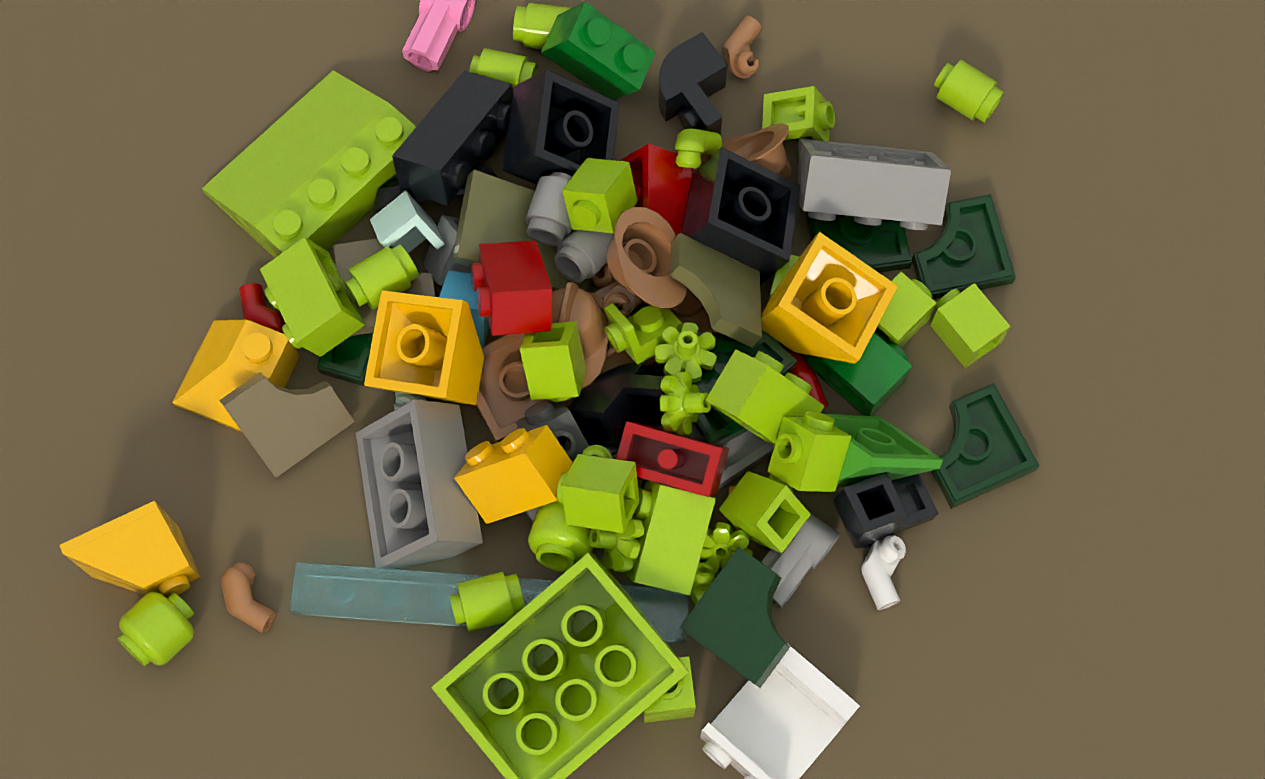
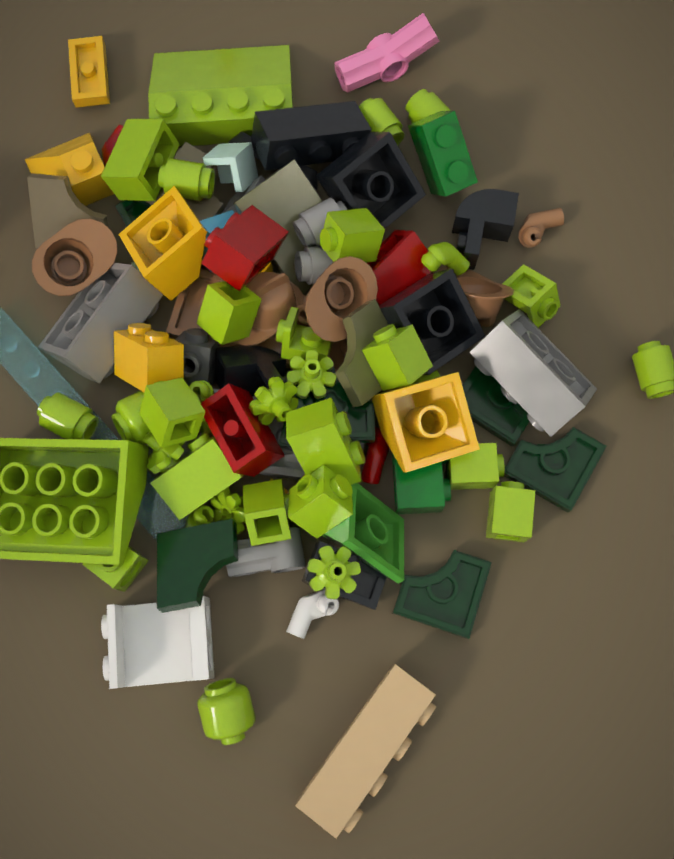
camera: 45 degrees right, 5 degrees up
(154, 260) = (88, 71): none -> yellow plate
(340, 445) = (74, 257): none -> medium nougat piece
(751, 267) = (397, 356): none -> lime brick
(882, 502) = (325, 573): none -> lime plant
(898, 724) = (226, 711): none -> lime head
(1049, 640) = (365, 751): none -> tan brick

